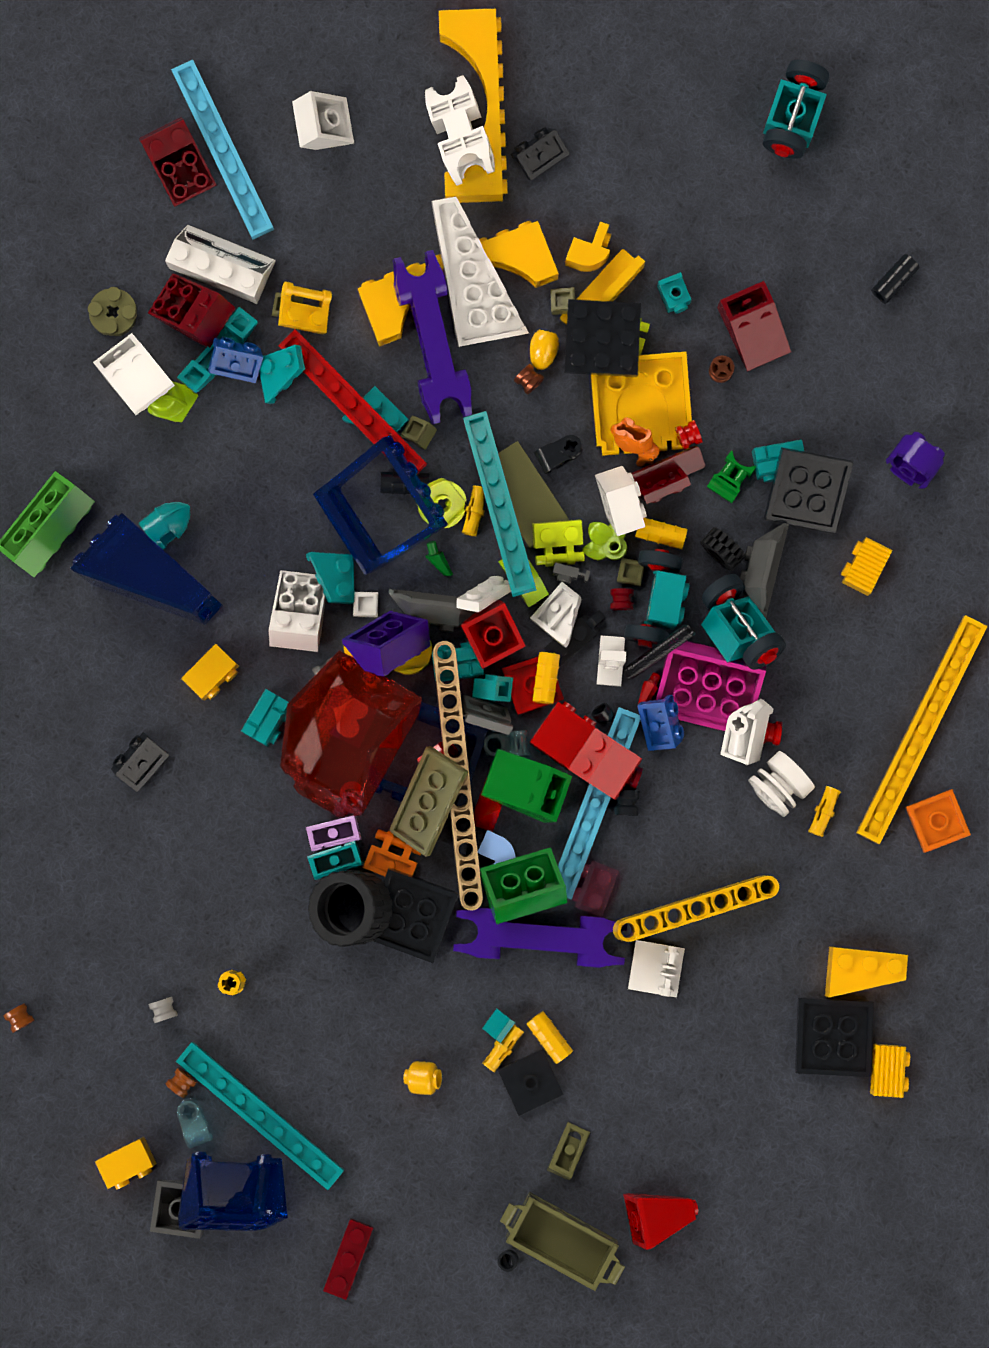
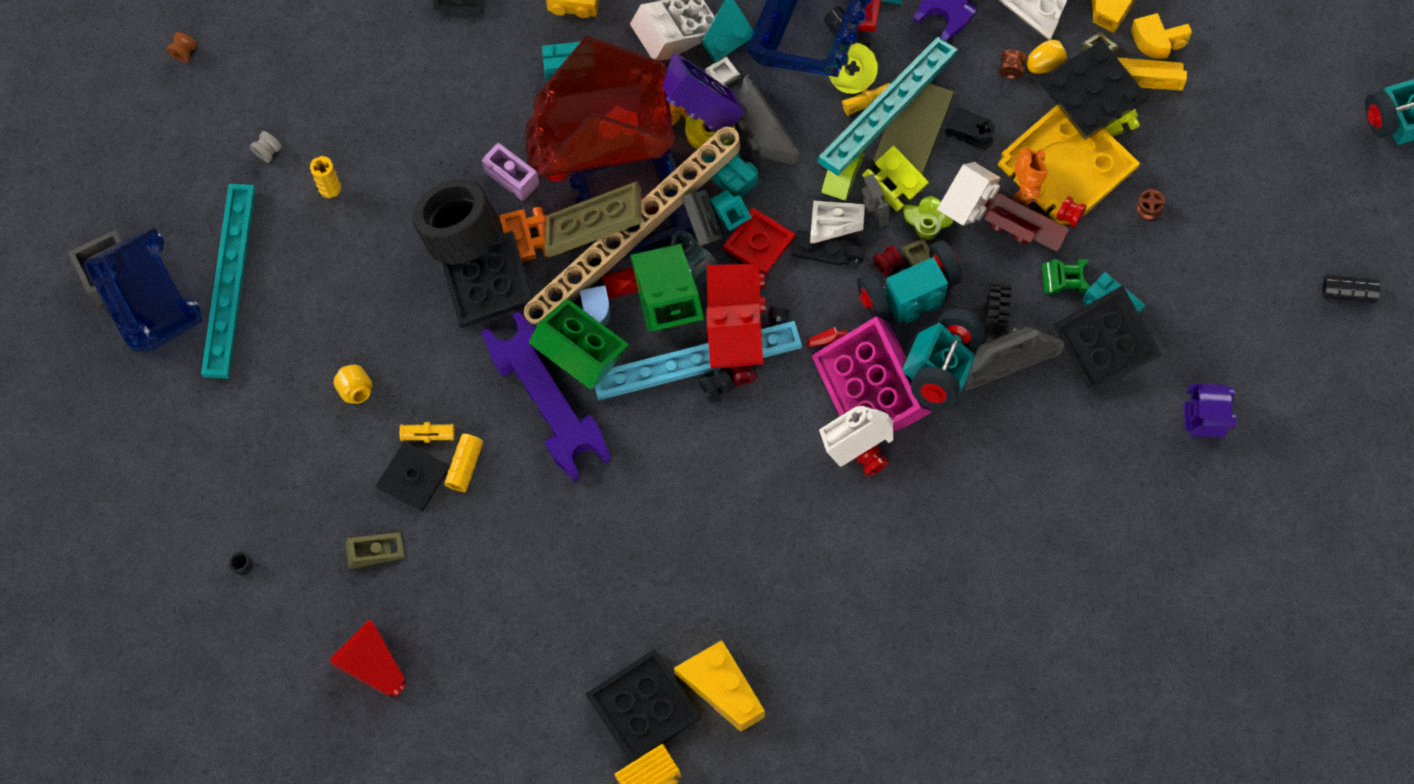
camera: 55 degrees right, 15 degrees down
(125, 1163) = (115, 204): yellow brick -> none
(181, 1082) = (213, 200): dark orange wheel -> none
(195, 1126) = (184, 233): clear light blue piece -> none
(335, 860) = (499, 192): teal brick -> none
(348, 1259) = (152, 433): dark red plate -> none
(419, 432) = (898, 17): olive slope -> none
(438, 559) = (805, 100): green bar -> none
(484, 594) = (801, 141): white plate -> none
(492, 634) = (774, 174): red slope -> none
(498, 1025) = (443, 414): teal tile -> none
(546, 678) = (771, 242): yellow axle -> none
(562, 1241) = (288, 591): olive container -> none
(595, 888) = (622, 410): clear pink bracket -> none
(611, 660) = (831, 286): white bracket -> none
(656, 968) = (590, 511): white hinge -> none
(660, 655) = (859, 310): black piece -> none
(661, 723) = (808, 363): blue bracket -> none
(662, 533) = (971, 253): yellow axle -> none
(672, 303) = (1181, 124): teal brick -> none
(707, 903) = (662, 488): yellow beam -> none
(754, 326) = (1209, 202): dark red slope -> none
(784, 781) = (832, 495): white wheel -> none
(824, 811) = (839, 556): yellow pin -> none
(866, 565) = (1083, 437): yellow brick -> none
(921, 729) = (979, 588): yellow plate -> none
(938, 821) = (908, 660): orange plate -> none

